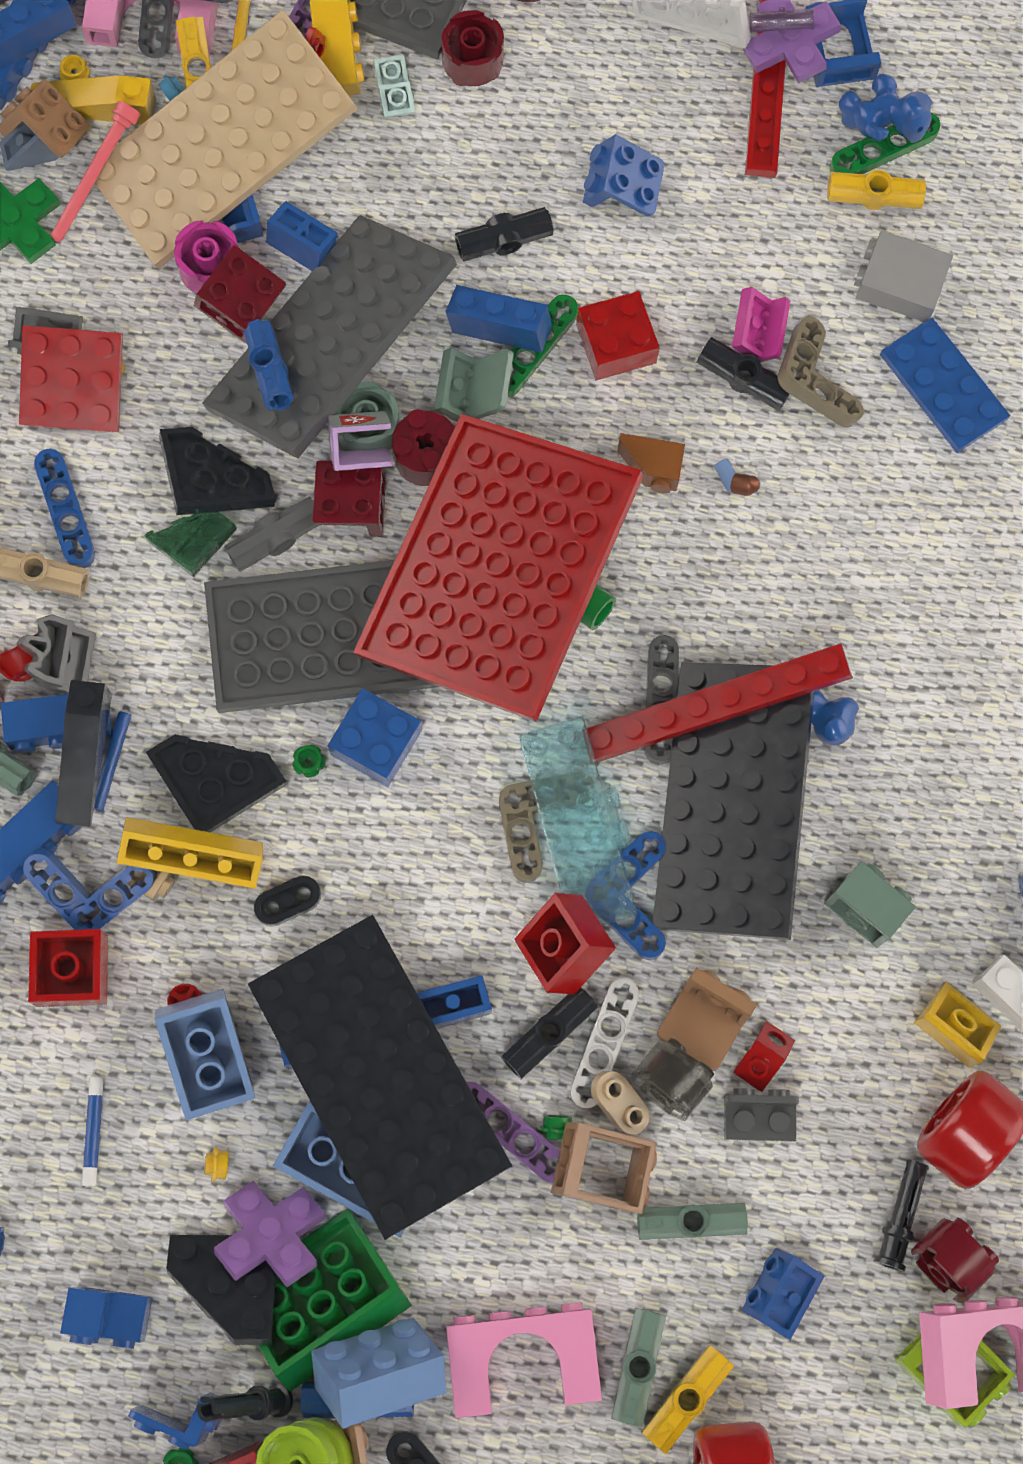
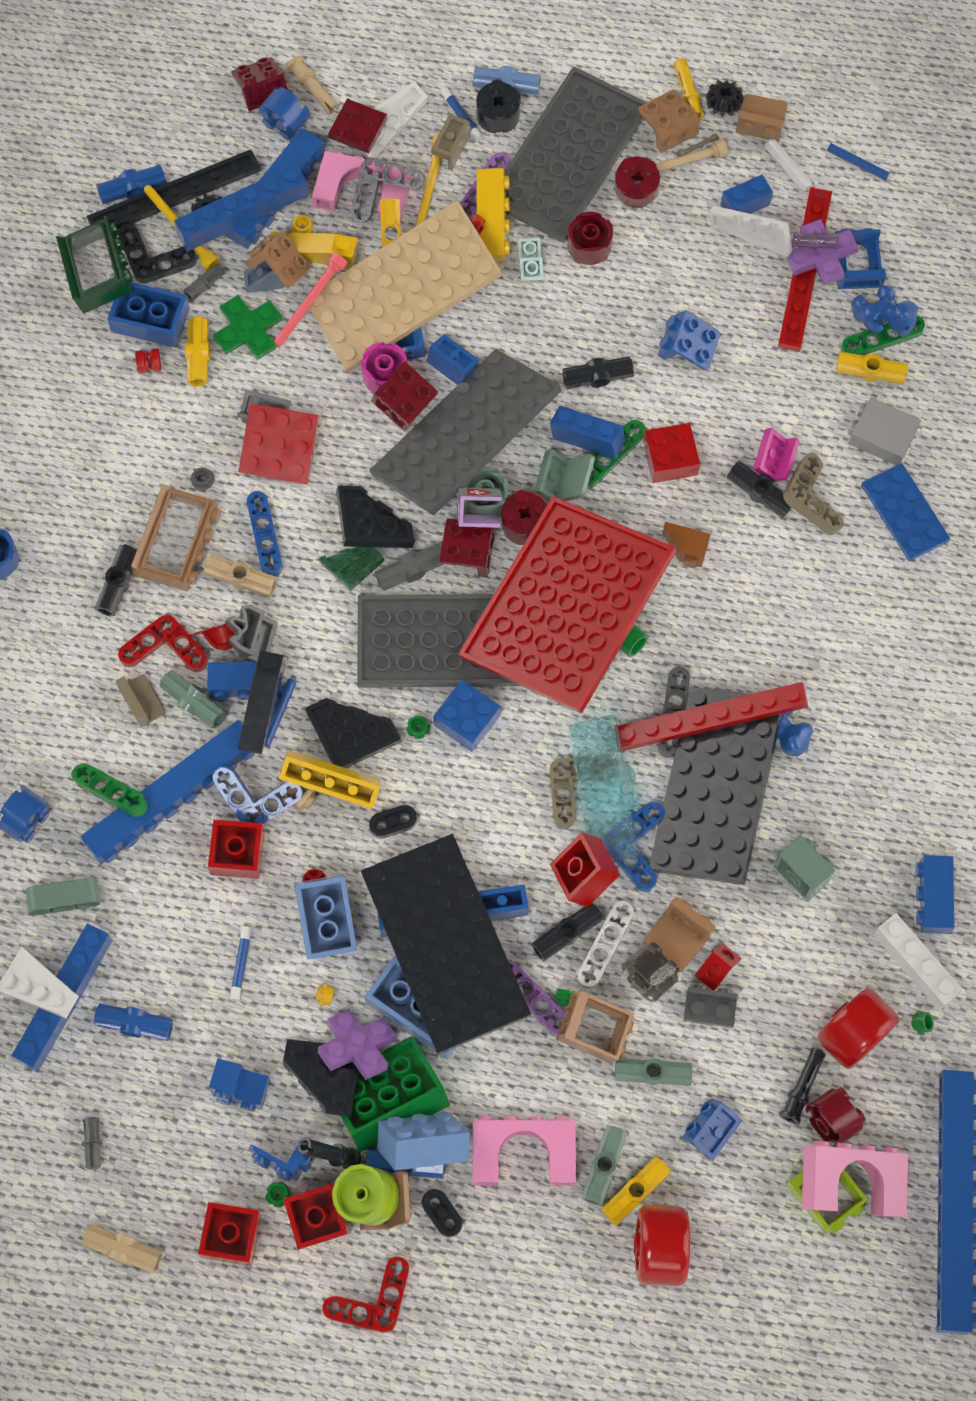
camera: 10 degrees right, 5 degrees down
(170, 87) = (370, 245): dark azure plate -> none
(268, 365) = (420, 448): blue piece -> none
(621, 1104) = (610, 987): tan plate -> none
(735, 482) = (745, 565): arm -> none
(958, 1025) = (858, 960): yellow slope -> none

